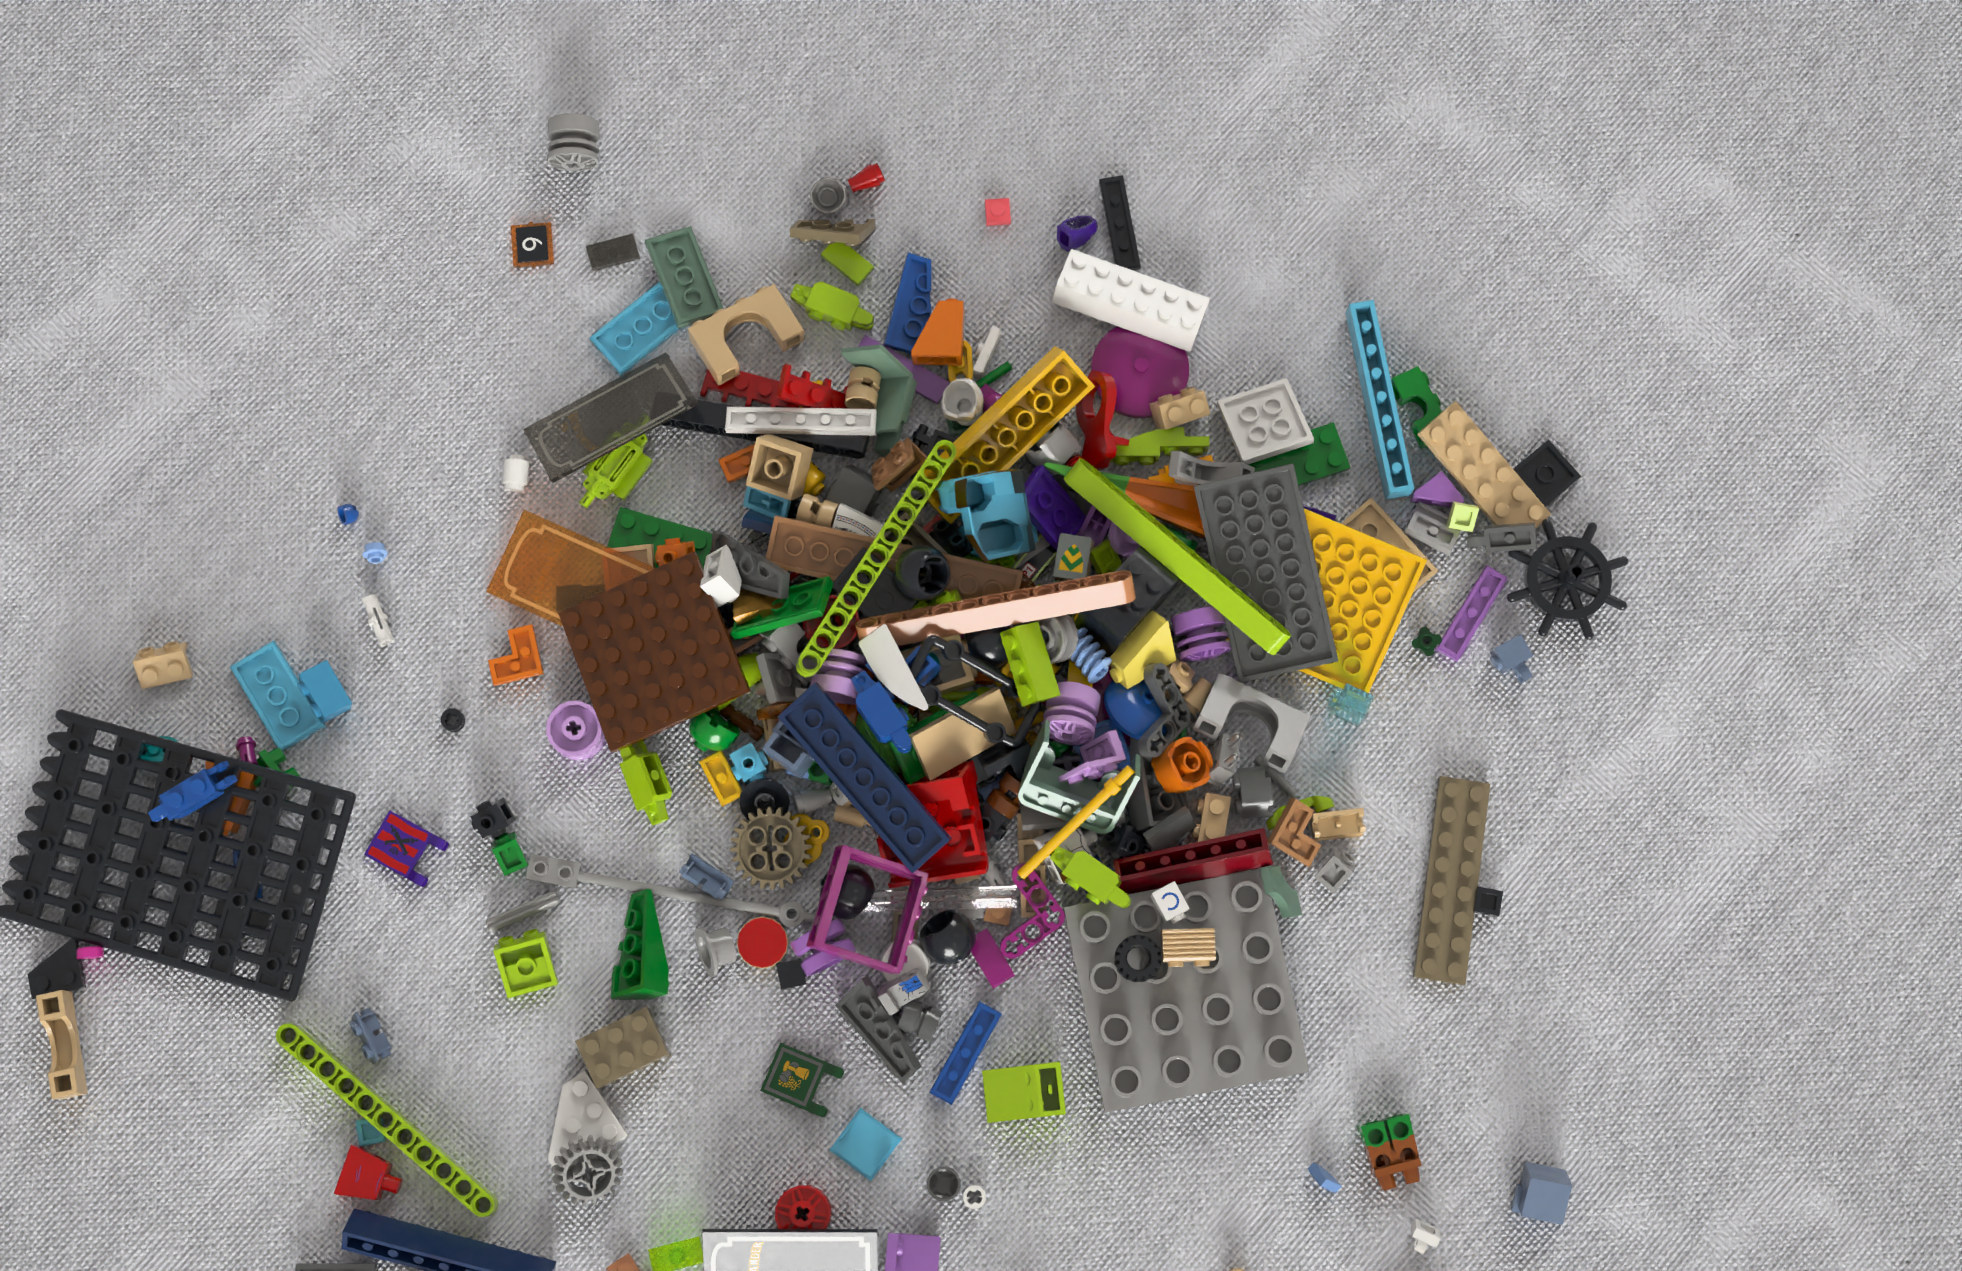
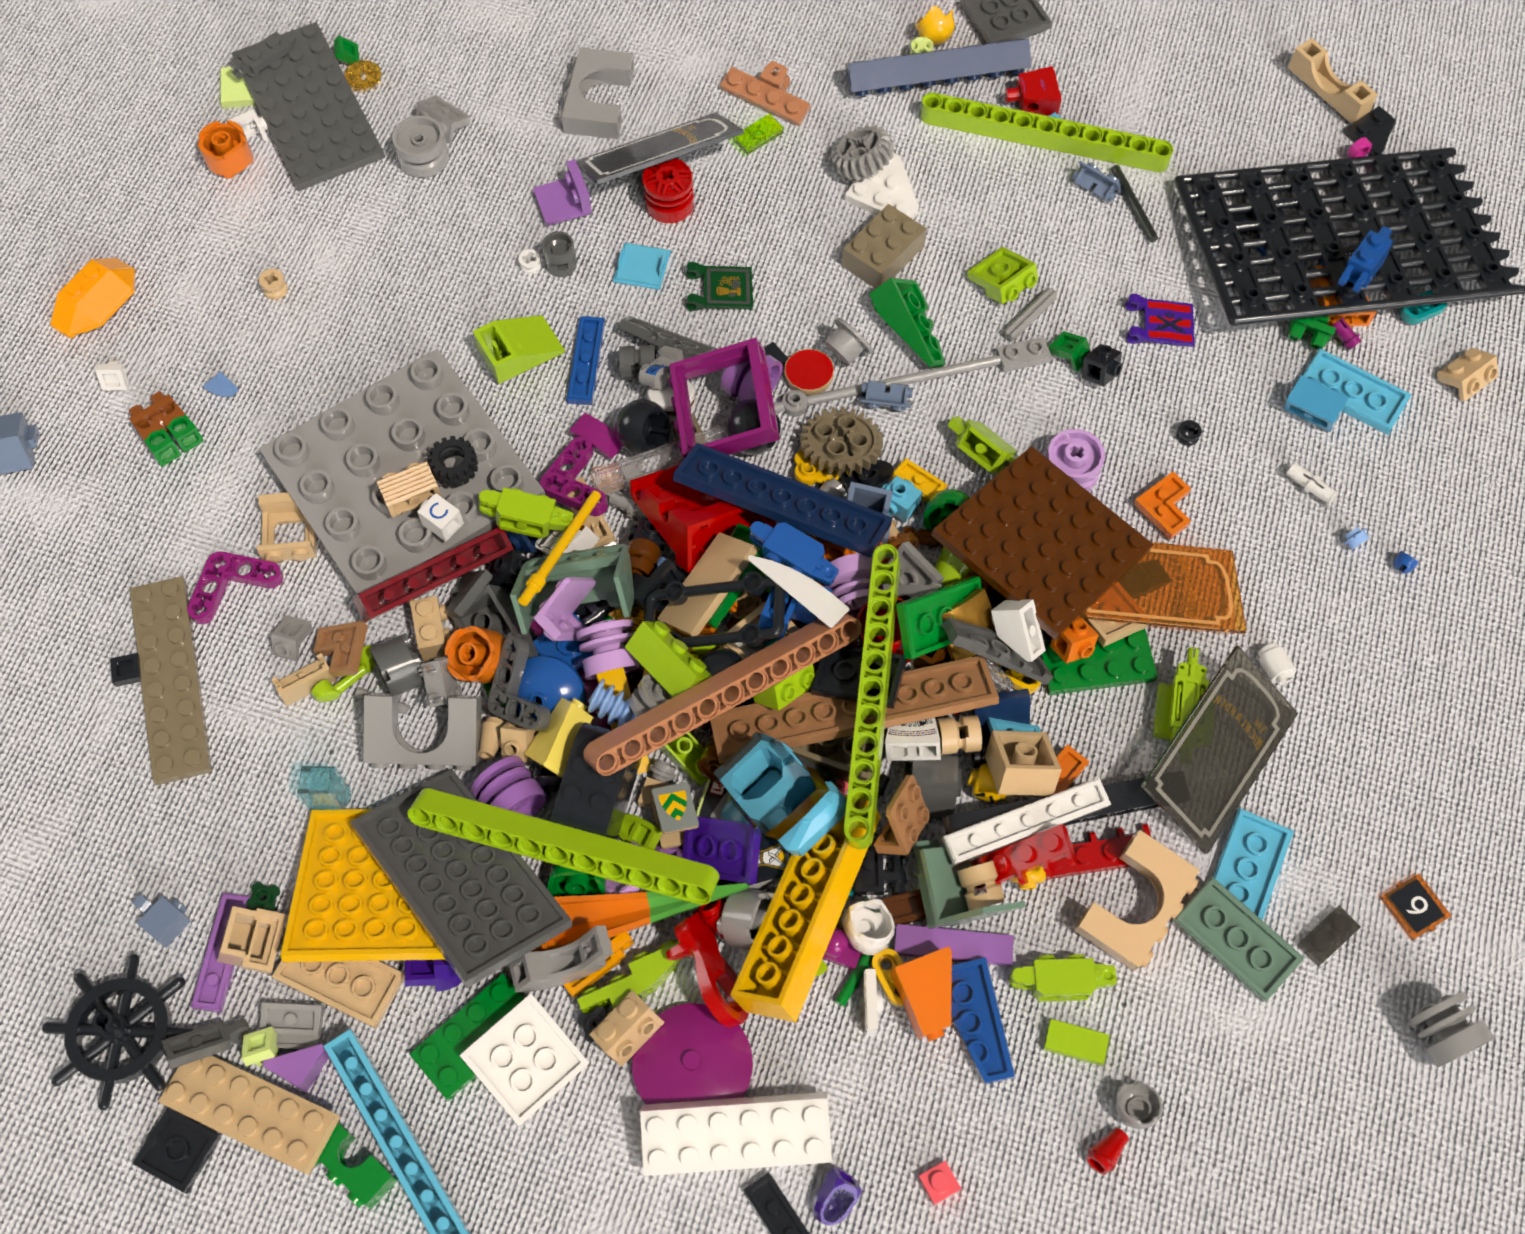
camera: 160 degrees right, 15 degrees down
(348, 994) = (1134, 204): none -> pearl dark grey bar
(829, 233) = (1106, 1062): dark tan wing -> none
(922, 572) = (819, 696): black wheel -> none
(926, 413) = (906, 907): none -> reddish brown tile
(1206, 423) = (587, 1019): none -> black plate
(1281, 892) = (337, 589): sand green tile -> none
(1307, 1008) = (278, 510): none -> tan window
(1370, 963) = (229, 572): none -> magenta beam
(1446, 602) = (251, 939): none -> tan plate

